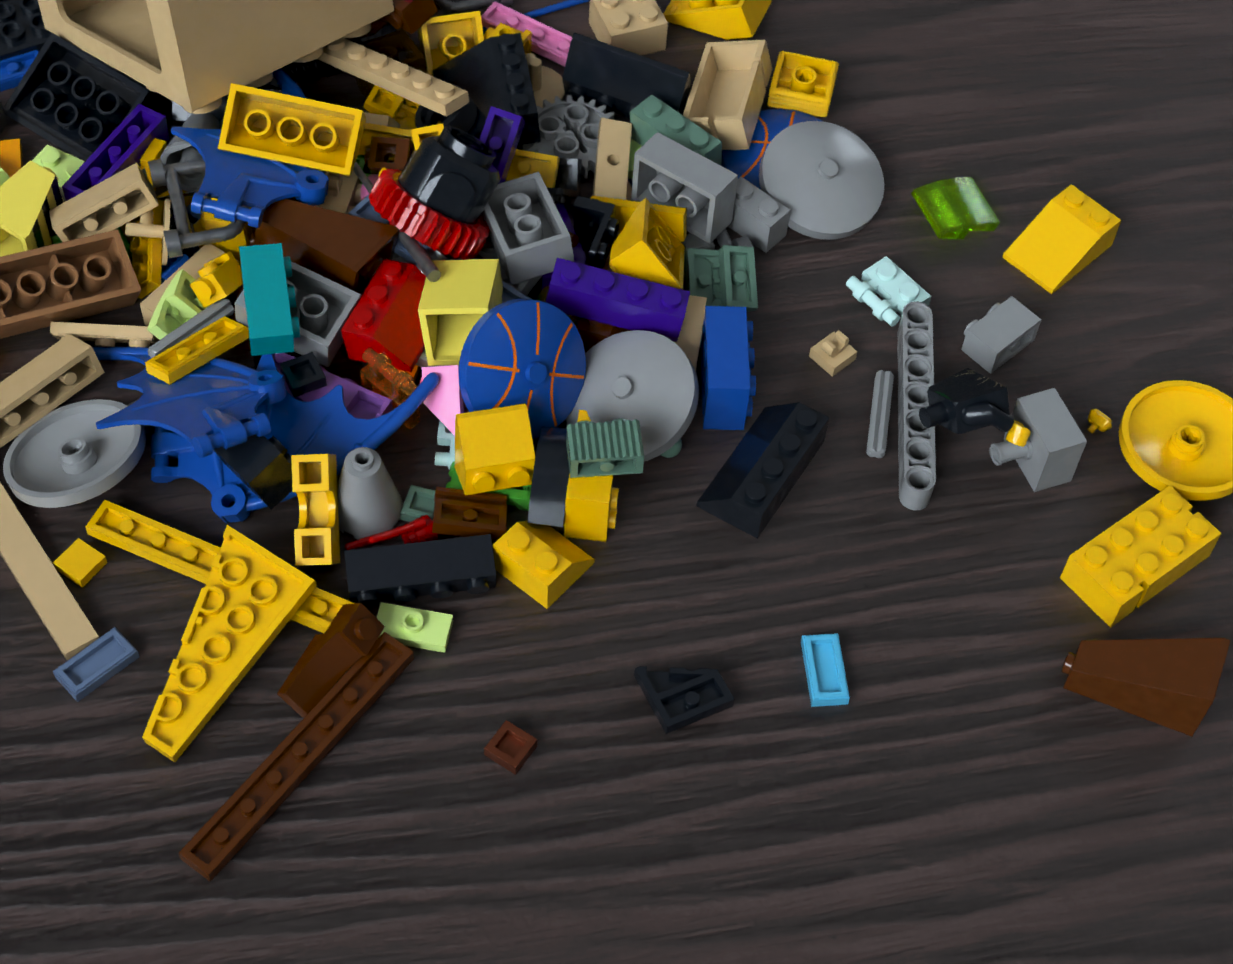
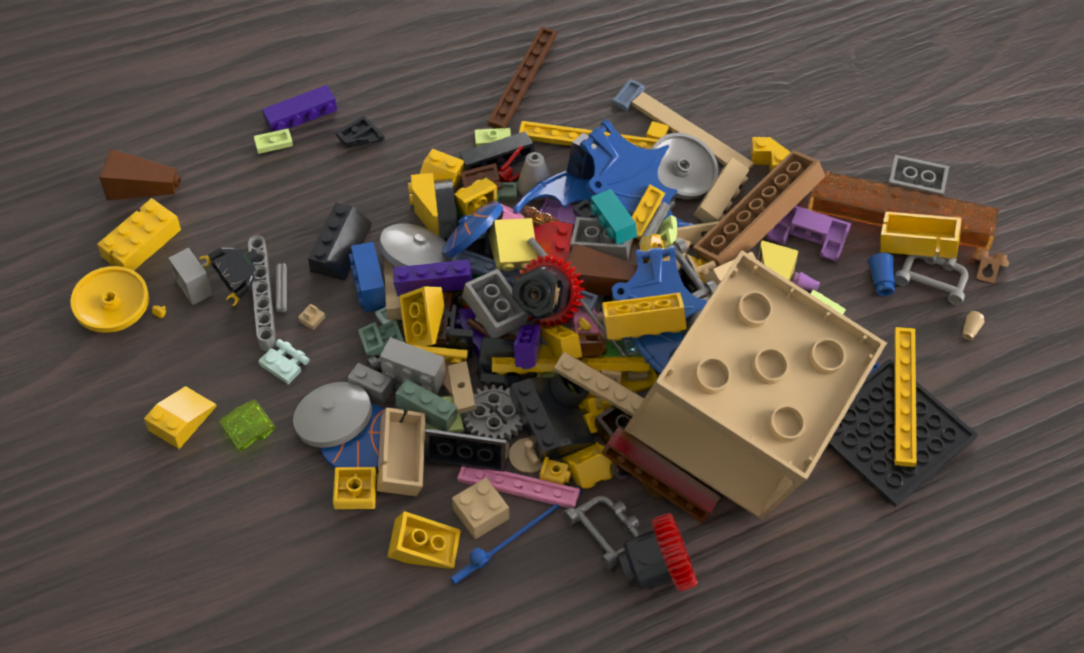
camera: 170 degrees right, 0 degrees up
(231, 626) = (573, 106): yellow wing -> none
(318, 528) = (555, 156): yellow arch -> none
(330, 656) = (518, 115): reddish brown slope -> none
(510, 747) = (432, 101): copper tile -> none
(604, 448) = (418, 188): sand green brick -> none
(801, 778) = (300, 109): none -> dark purple brick
(825, 670) = (295, 161): medium azure tile -> none
(866, 717) = (273, 141): none -> yellowish green plate
(1000, 334) = (216, 343): light grey brick -> none

